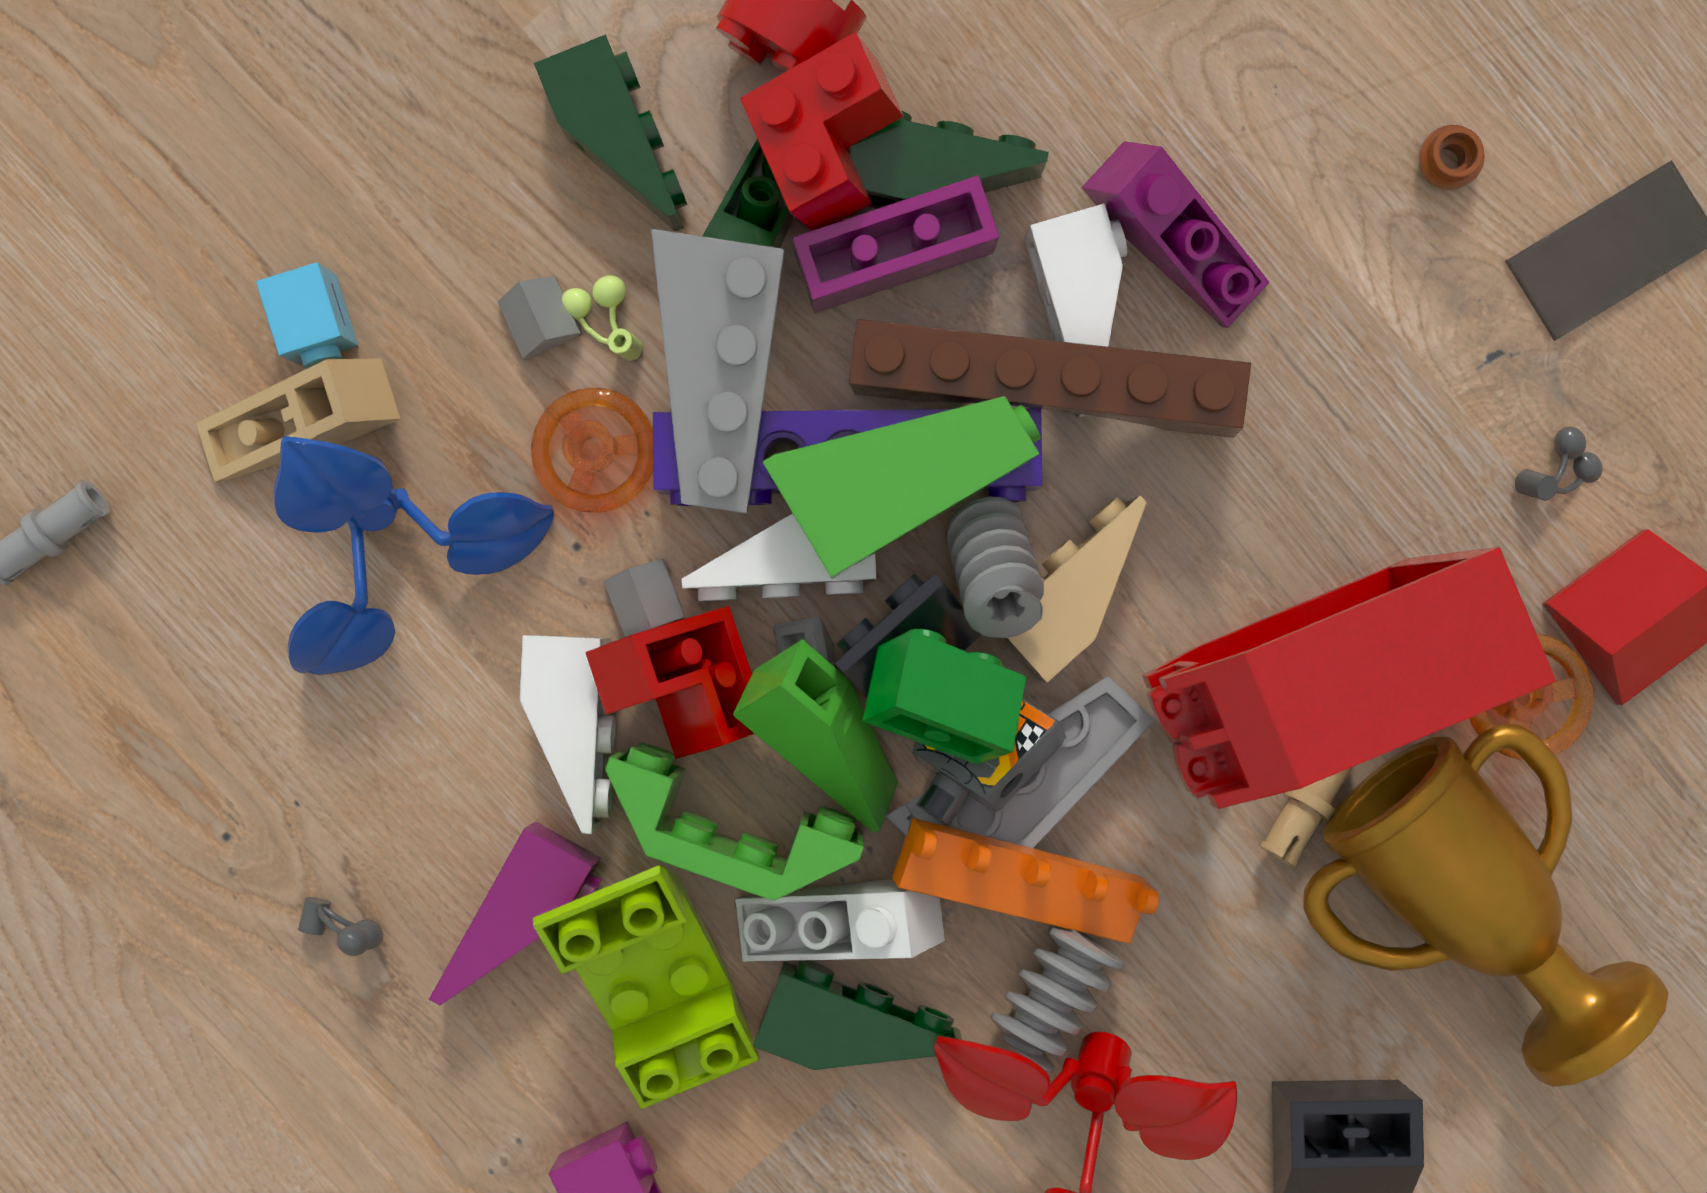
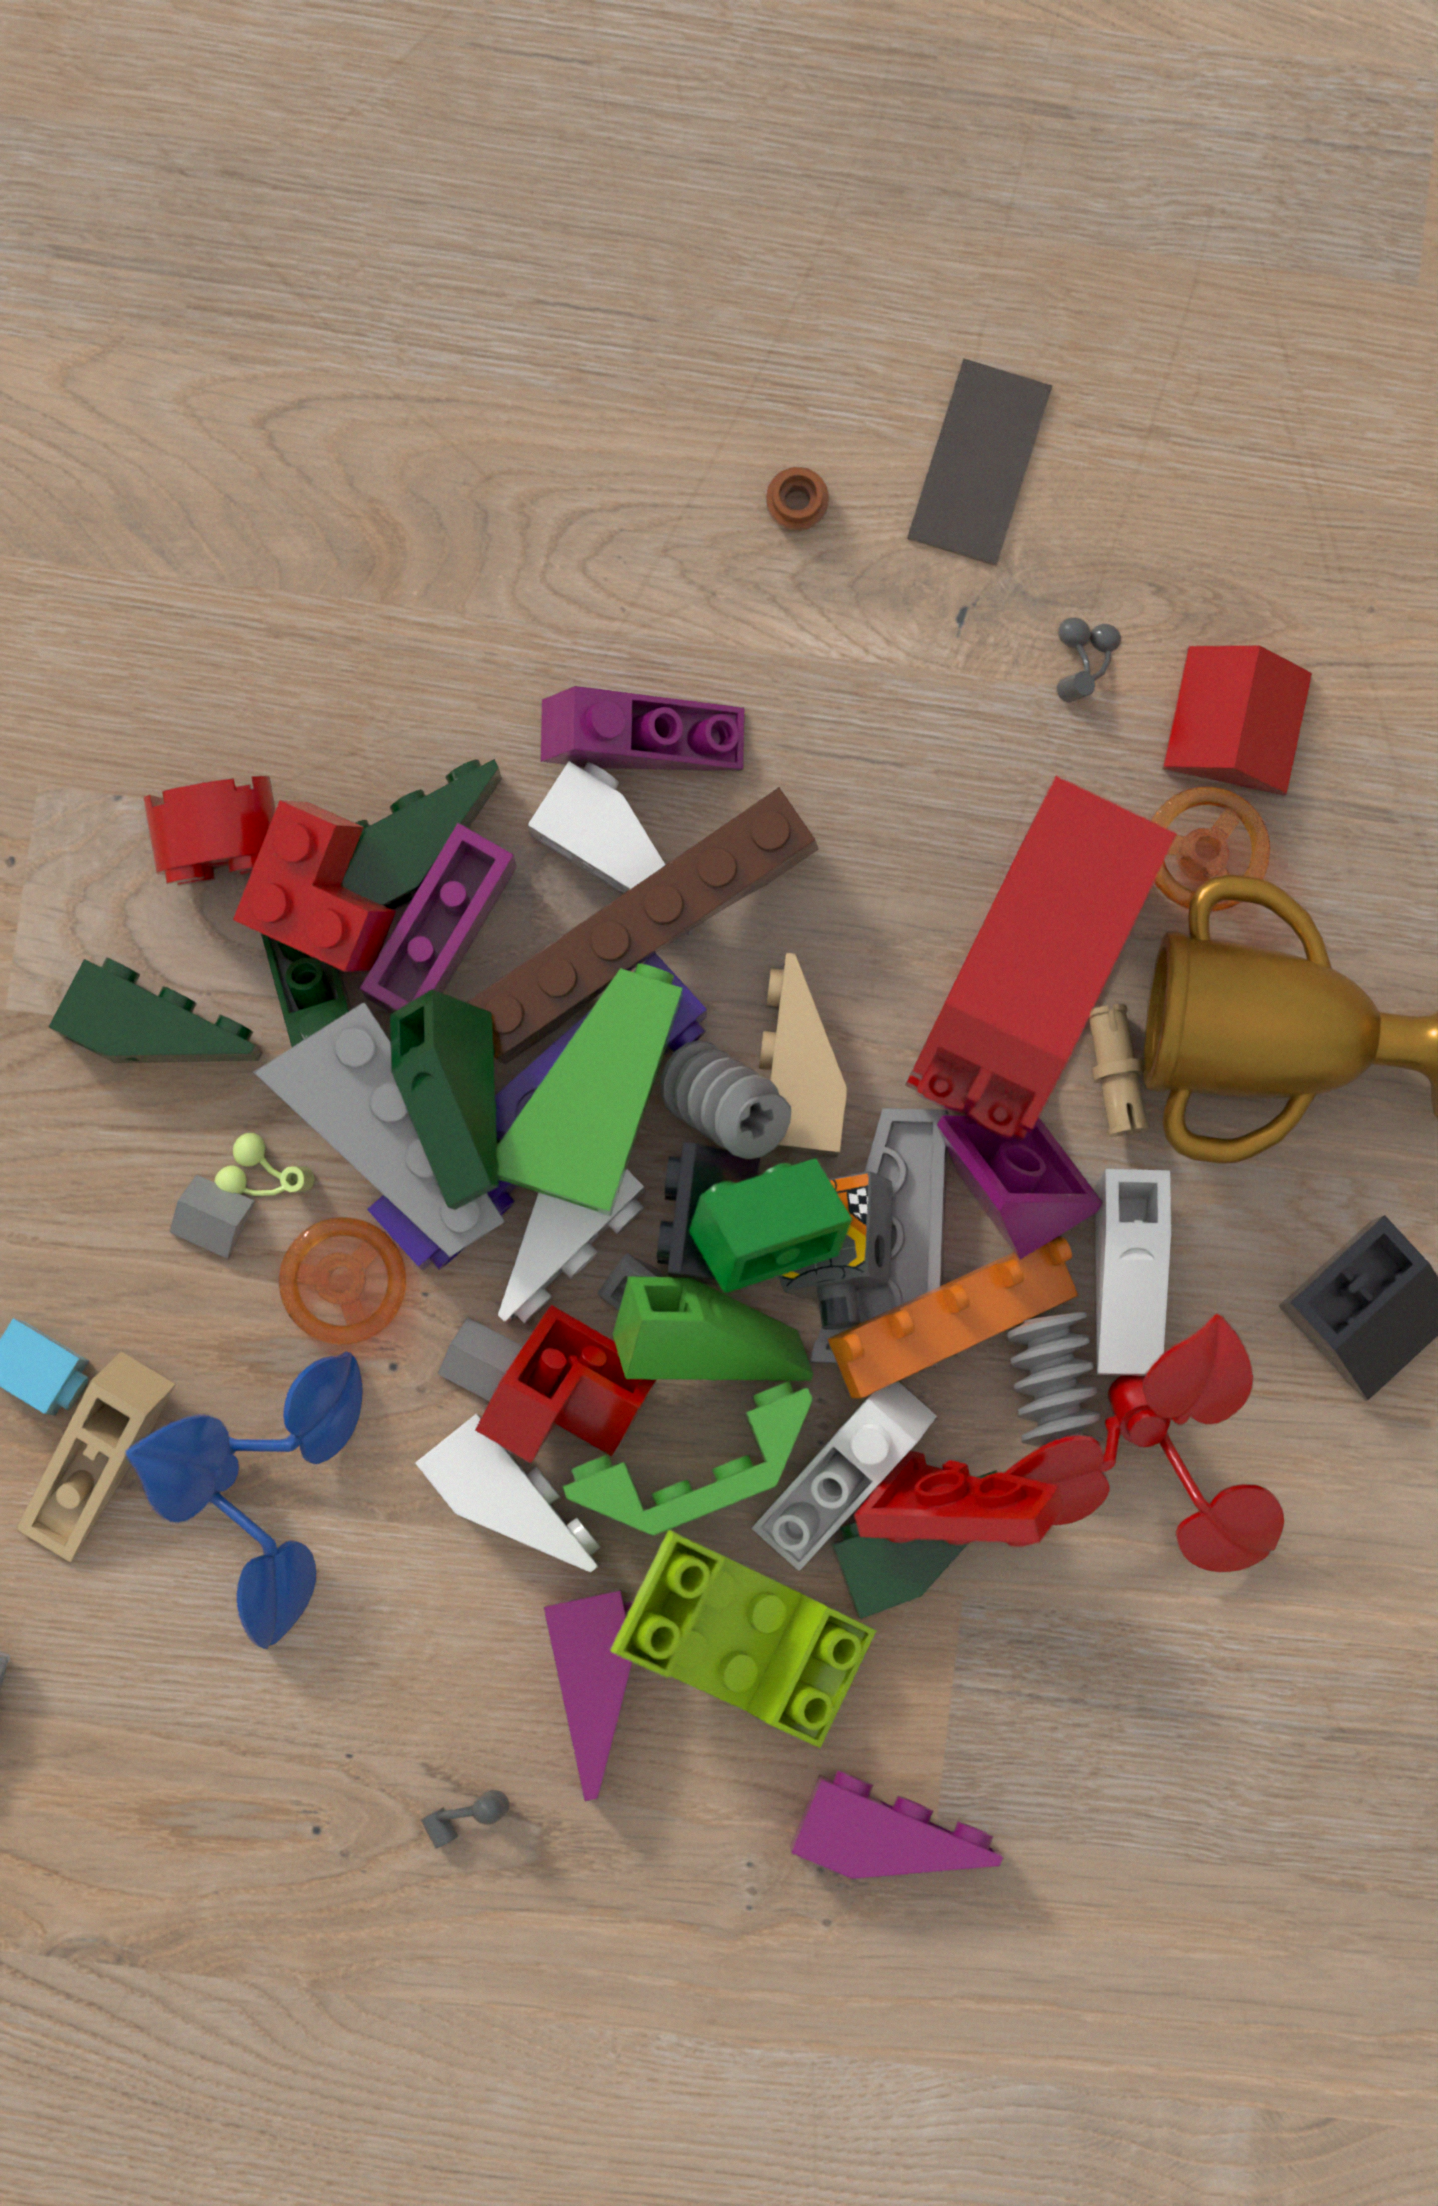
camera: 45 degrees left, 5 degrees down
(790, 371) = (447, 1083): none -> dark green slope
(900, 1040) = (958, 1507): none -> red wing
(1162, 830) = (1022, 1185): none -> magenta slope
(1190, 963) = (1131, 1269): none -> white slope

